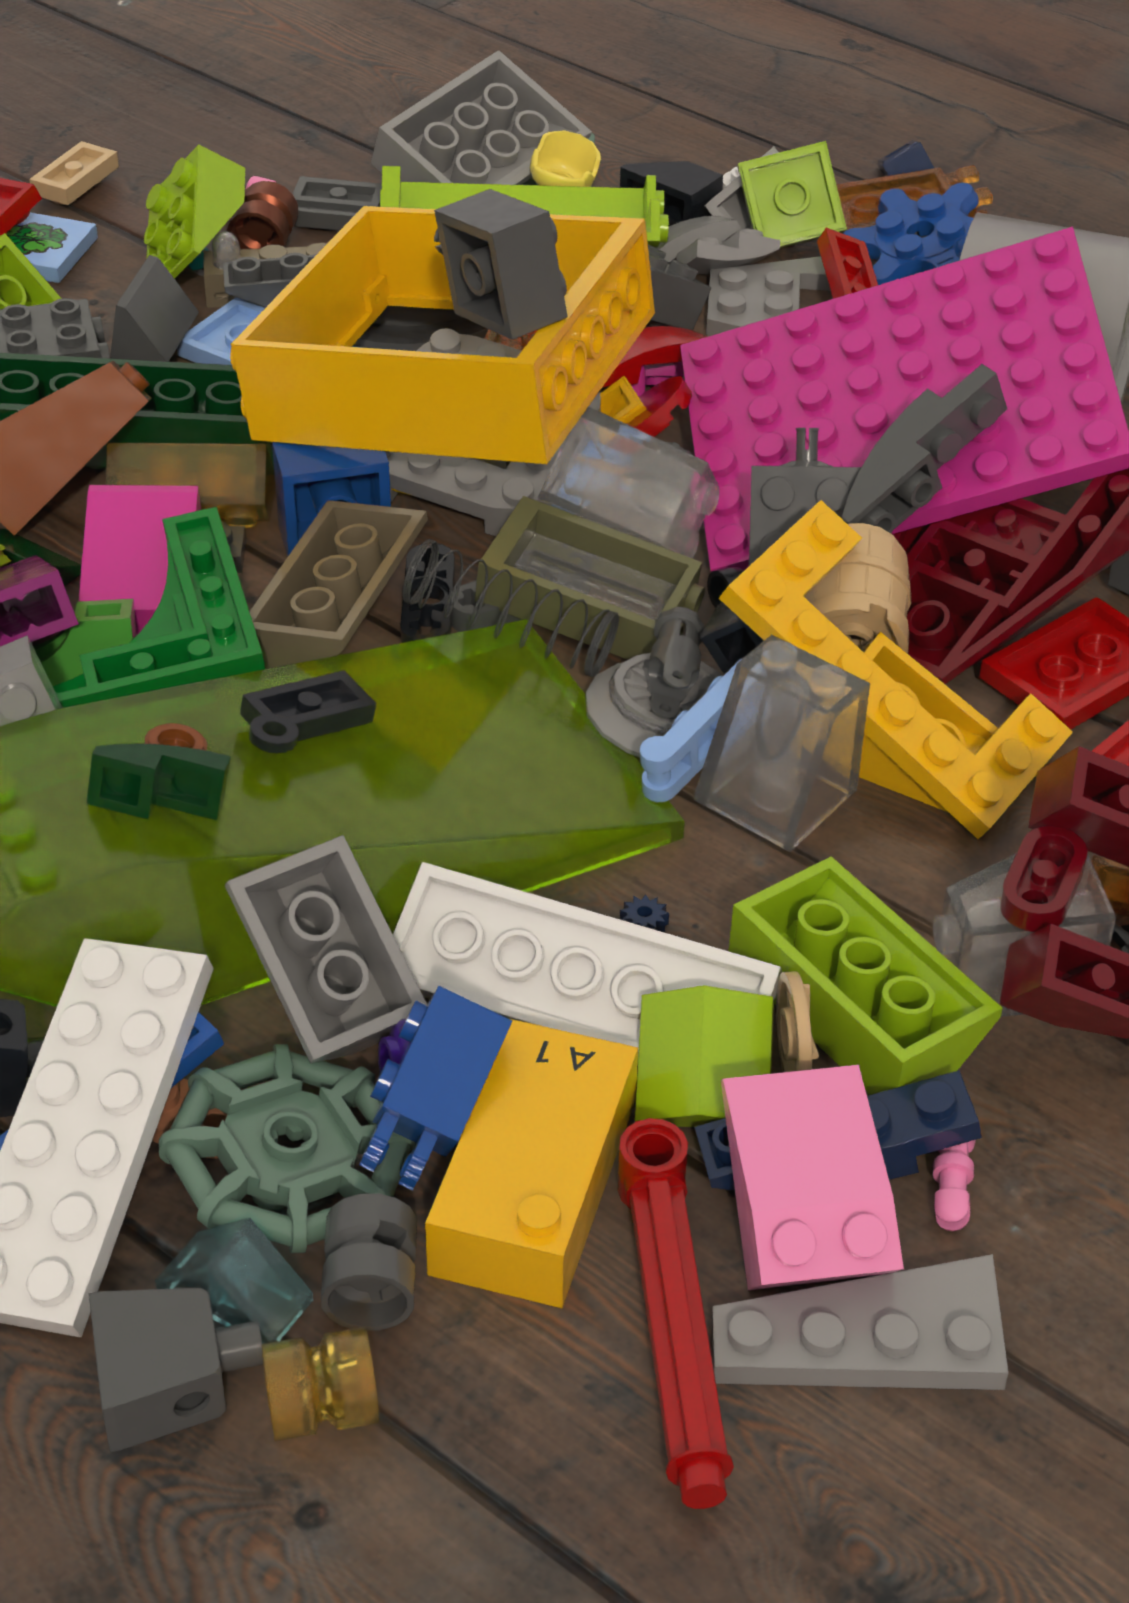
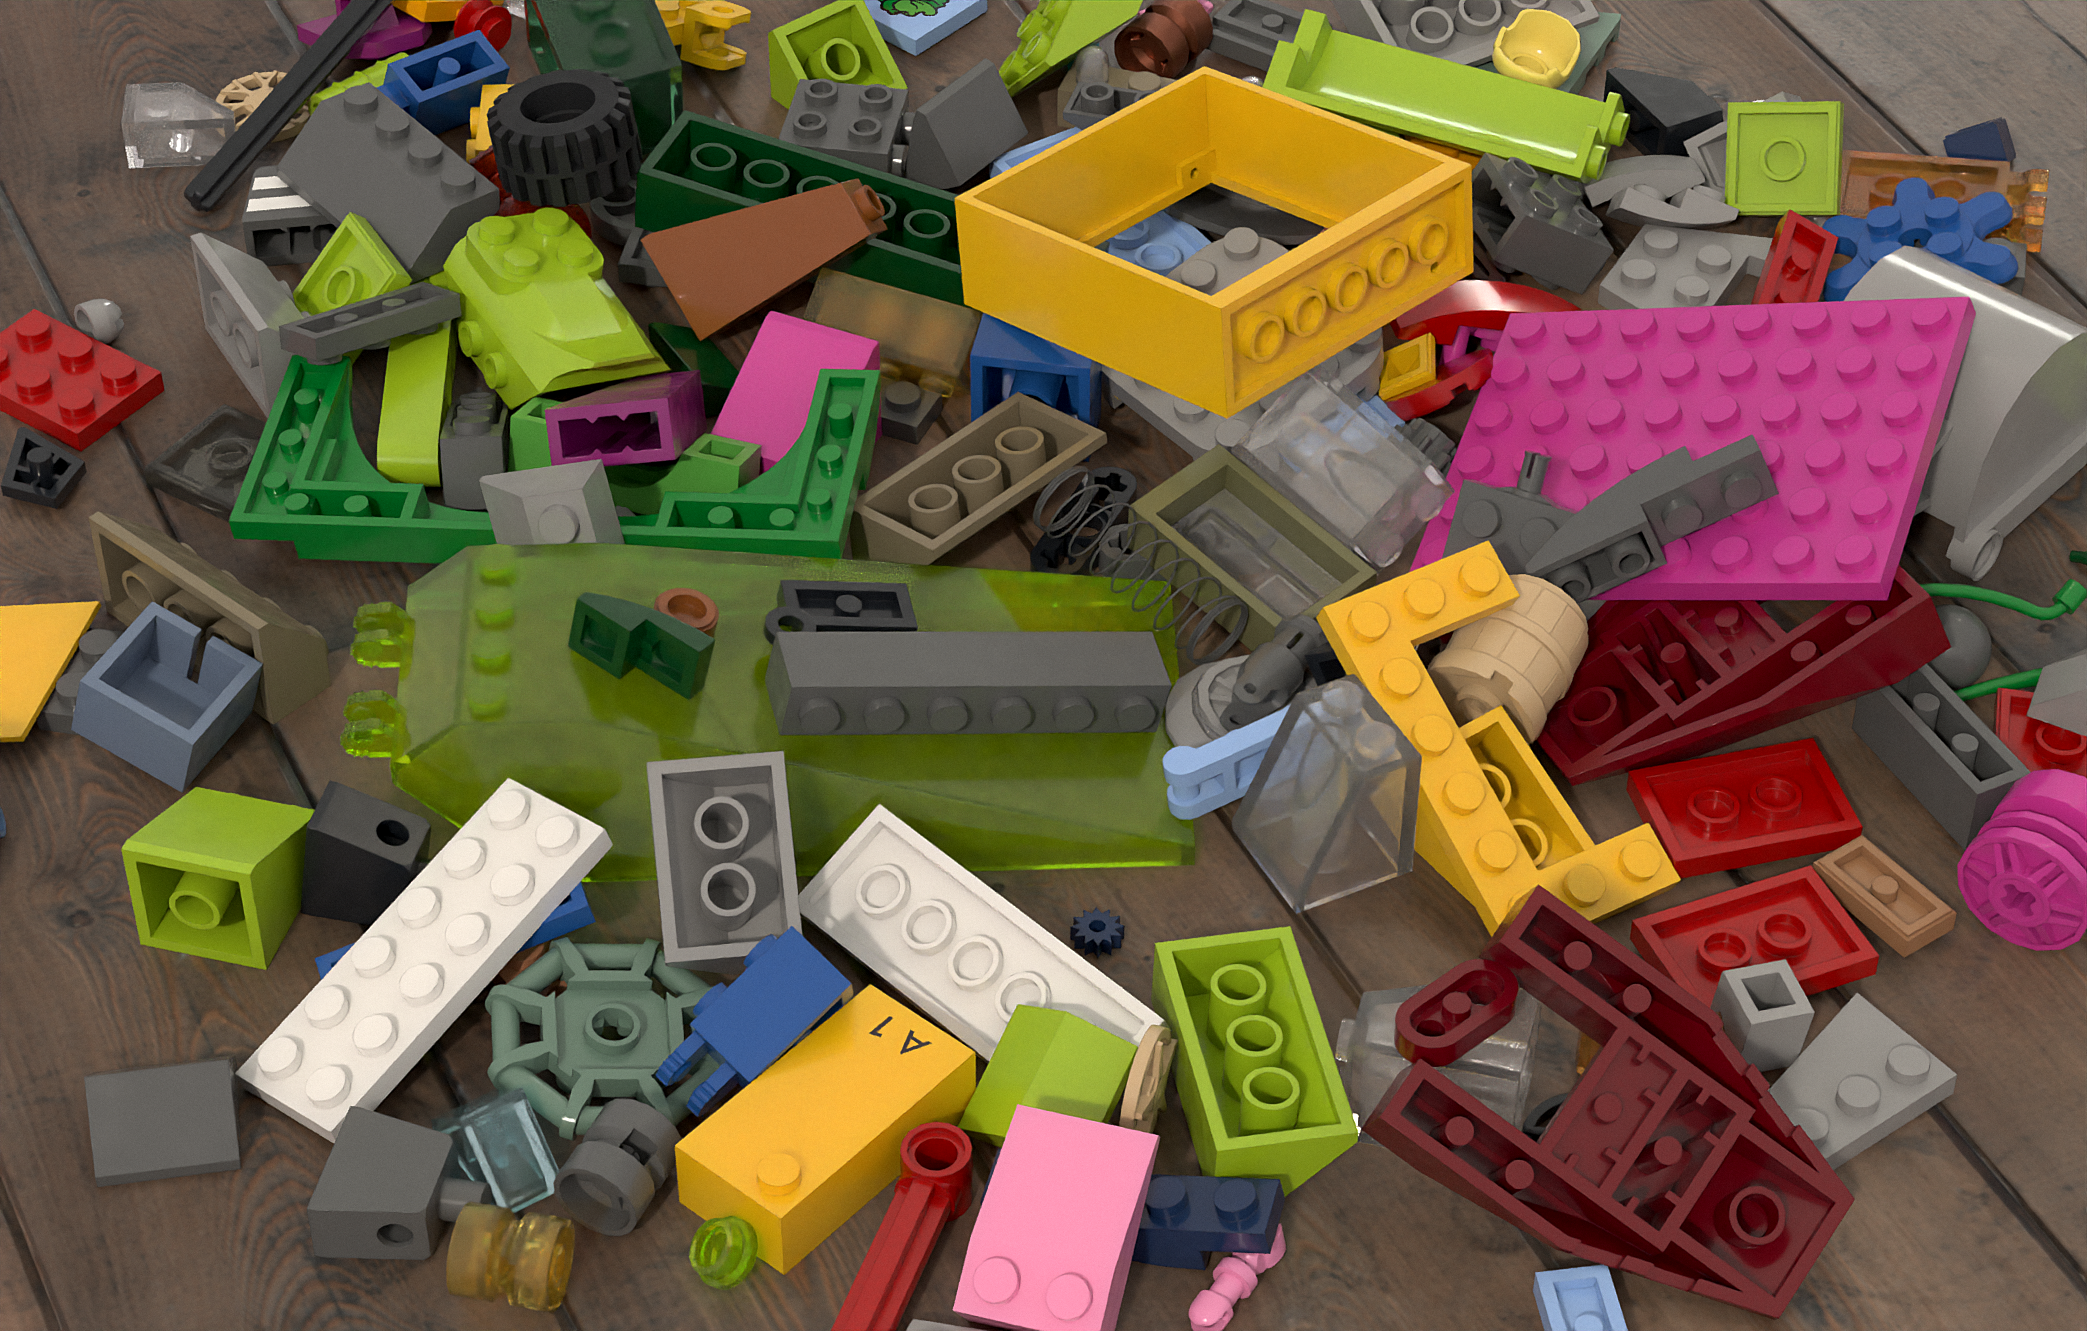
camera: 25 degrees right, 0 degrees up
(435, 739) = (966, 682): none -> dark grey brick
(501, 263) = (1245, 186): dark grey brick -> none
(509, 1306) = (724, 1251): none -> clear neon green plate

